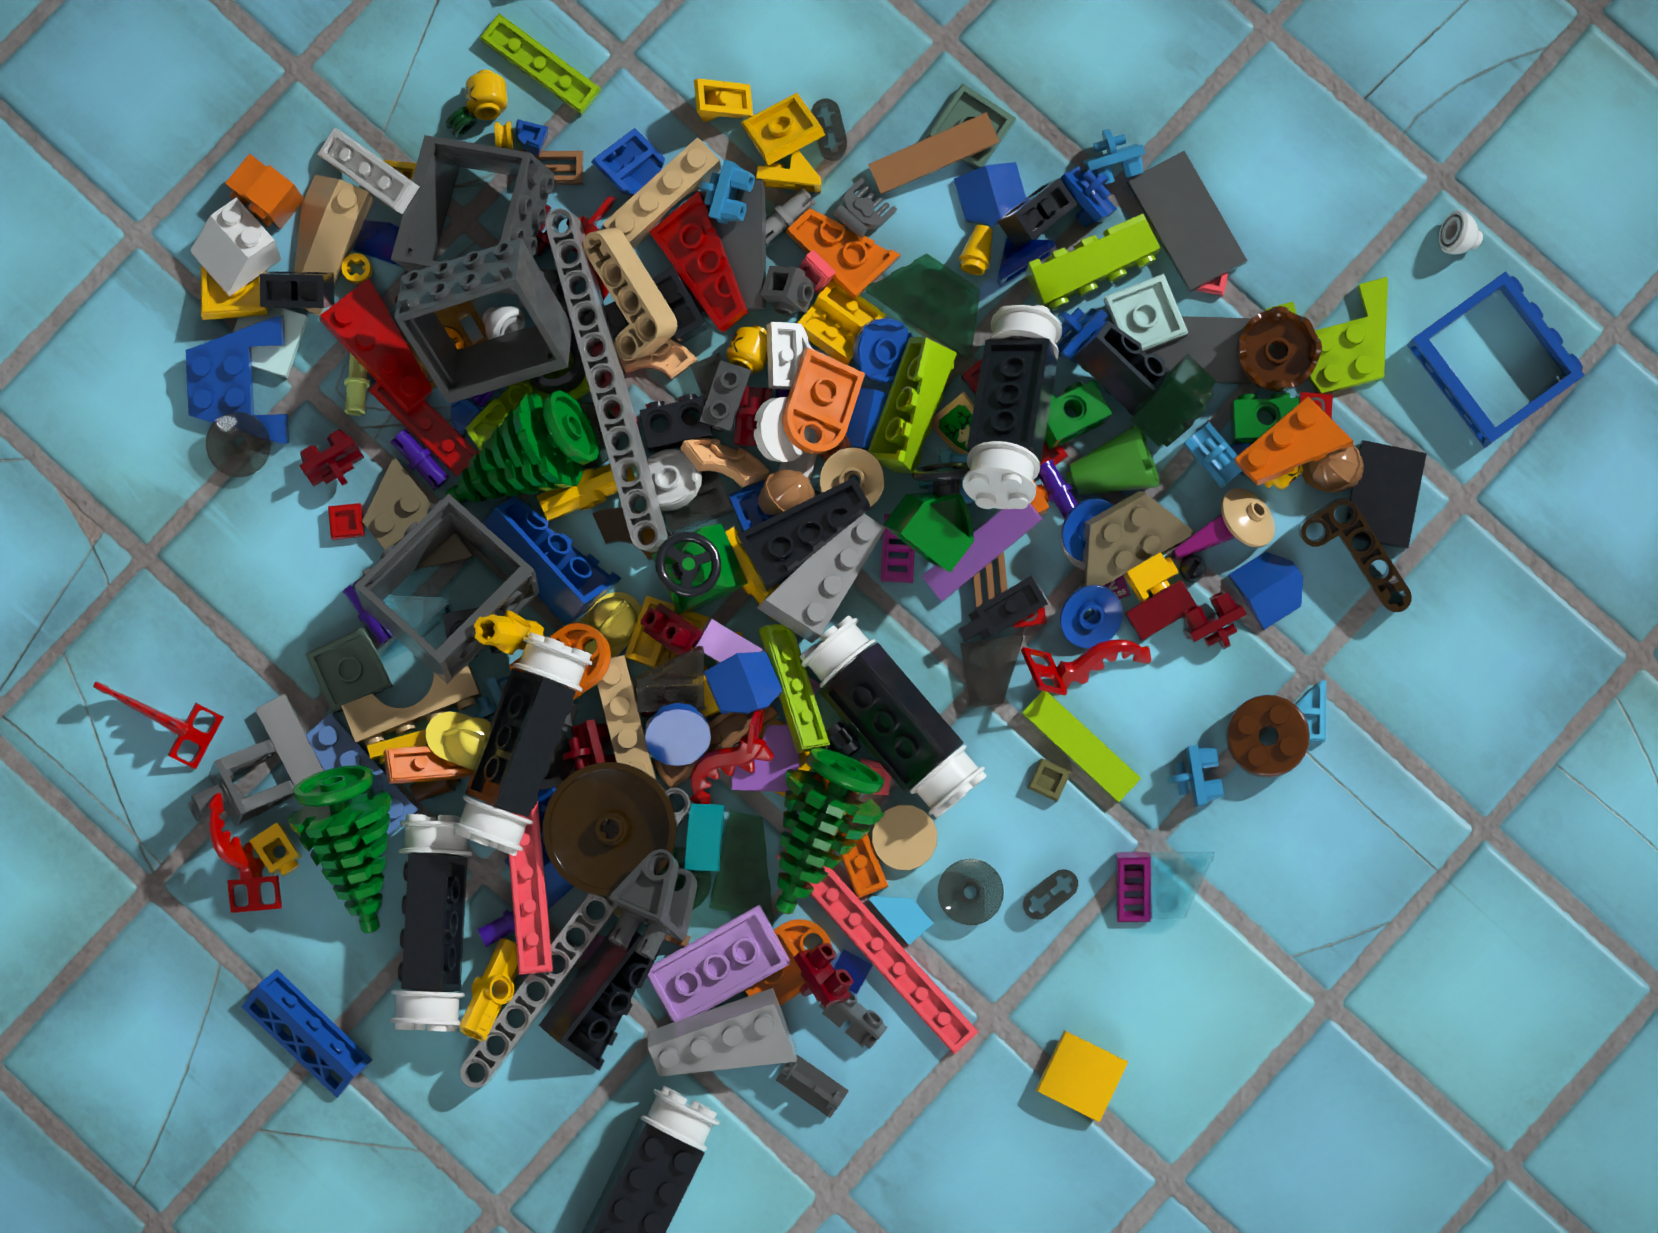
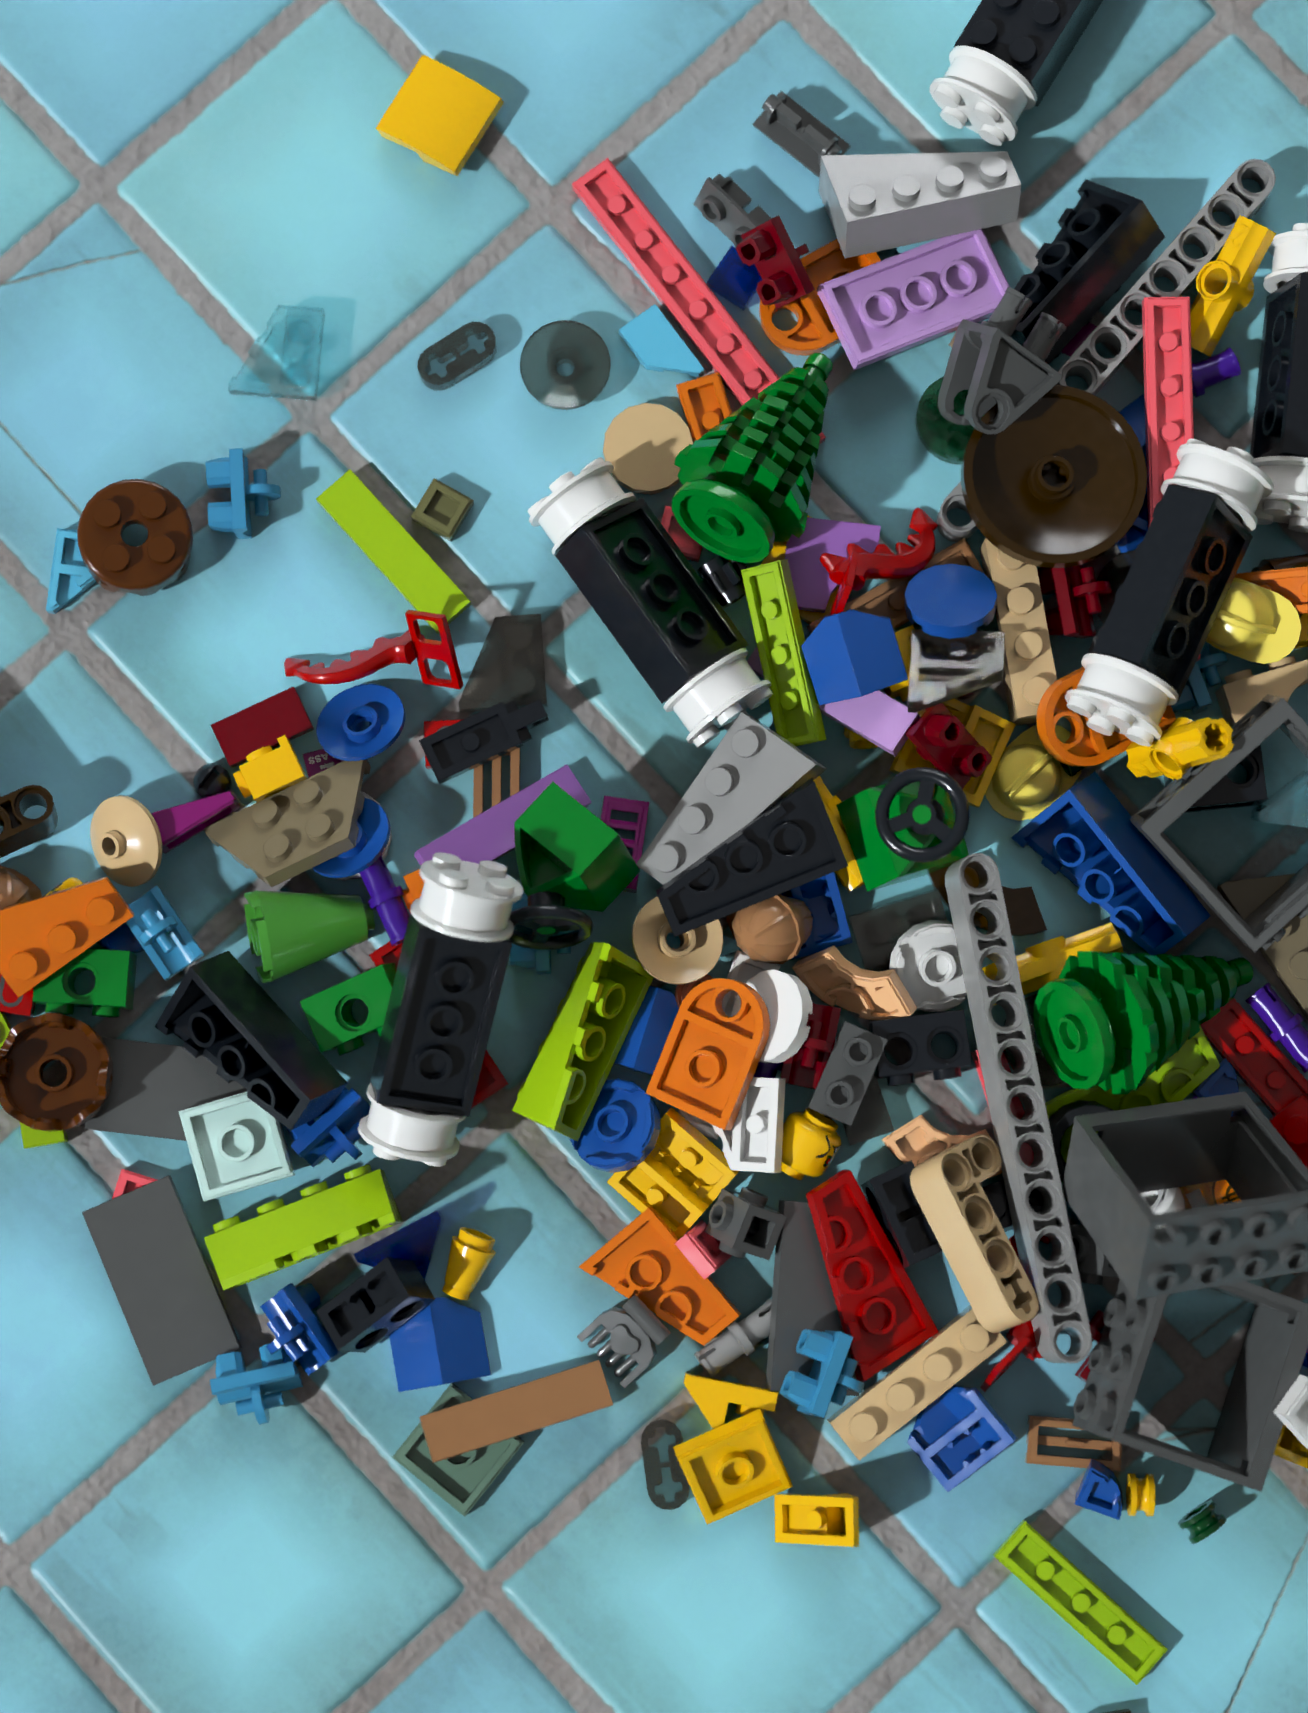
camera: 175 degrees left, 0 degrees up
(486, 95) = (1163, 1558): yellow head -> none
(704, 837) = (922, 465): teal slope -> none
(743, 867) = (873, 424): clear green wing -> none
(933, 301) = (537, 1193): clear green wing -> none
(954, 423) = (520, 1009): shield -> none
(1145, 873) = (343, 386): magenta slope -> none
(1177, 399) = (205, 998): clear green brick -> none
(1201, 626) = (188, 698): dark red hips -> none
(1269, 587) = (109, 747): blue slope -> none

